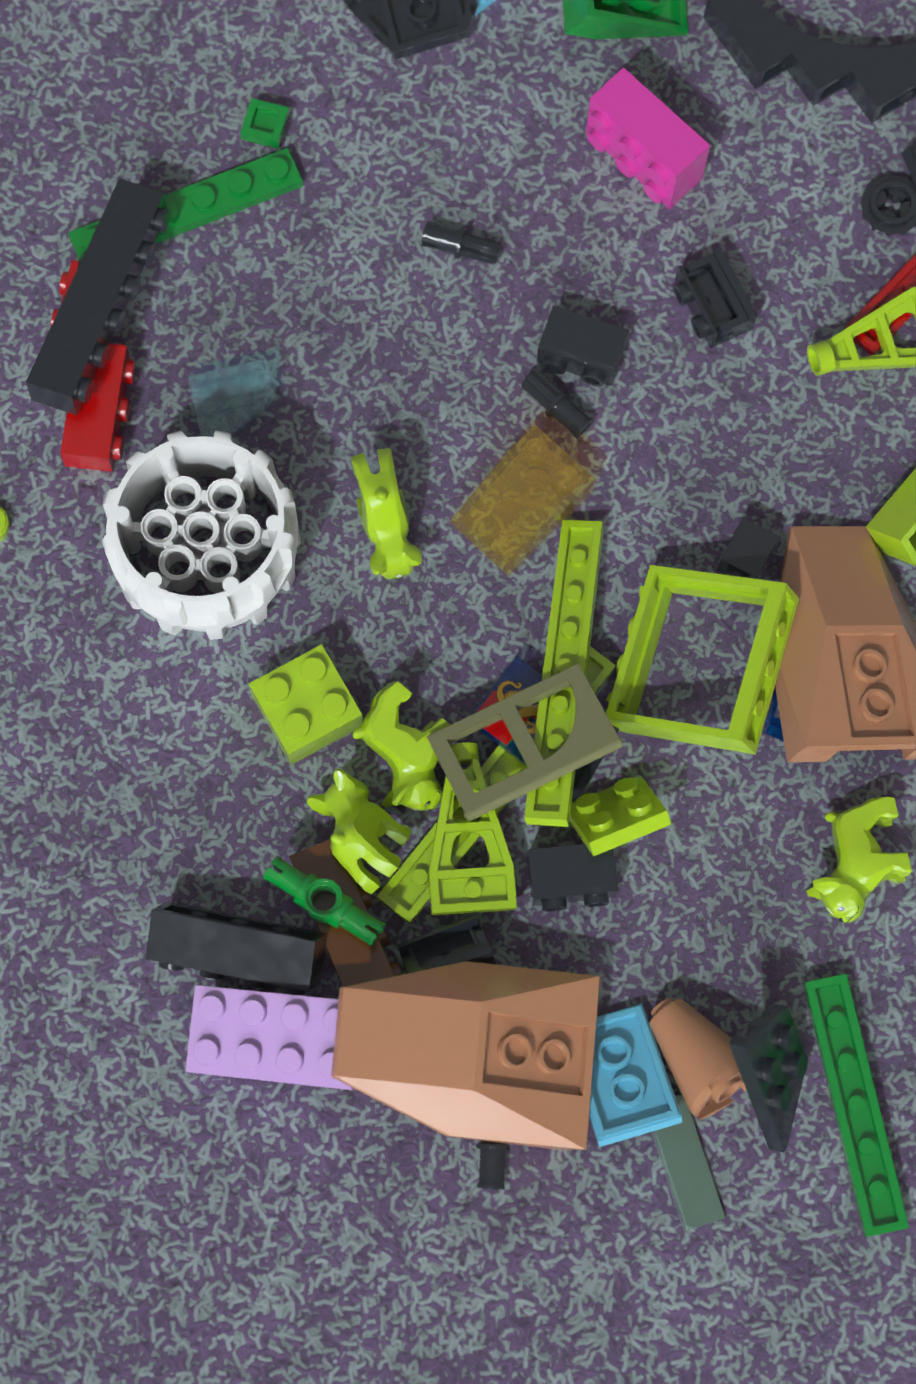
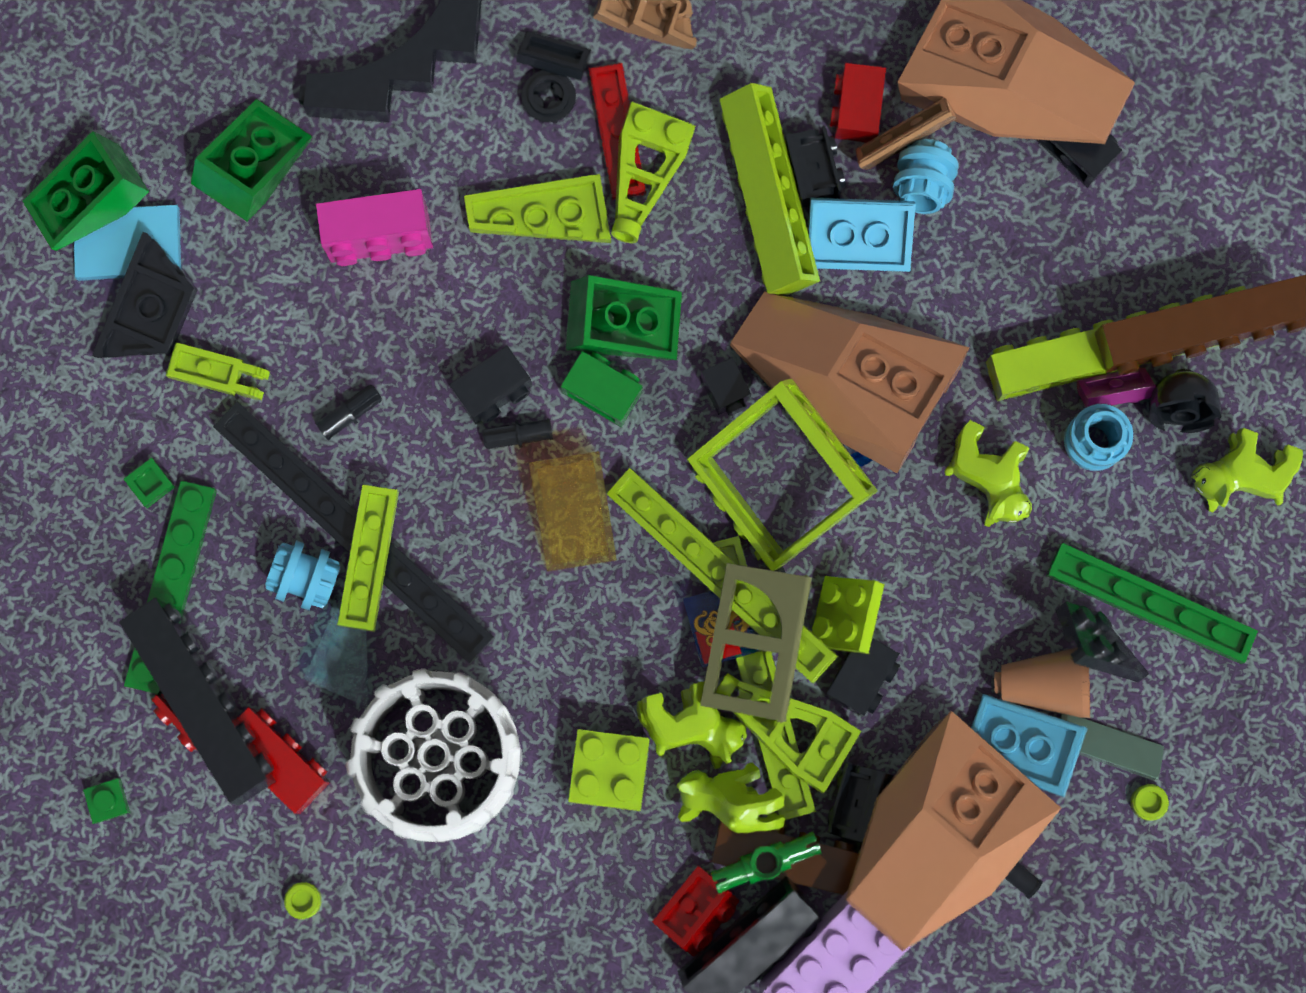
camera: 55 degrees left, 5 degrees up
(232, 881) = (696, 912): none -> red bracket
(280, 307) = (302, 575): none -> medium azure piece
(339, 350) = (368, 558): none -> lime plate
(353, 328) = (339, 521): none -> black plate
(385, 517) = (517, 617): lime animal -> none
(407, 104) = (213, 371): none -> lime hinge
(657, 445) = (602, 387): none -> green piece
(659, 1242) = (1149, 802): none -> lime tile
(714, 299) = (525, 269): black hinge -> none
(738, 418) = (623, 319): none -> green slope
(786, 281) = (544, 210): none -> lime wing

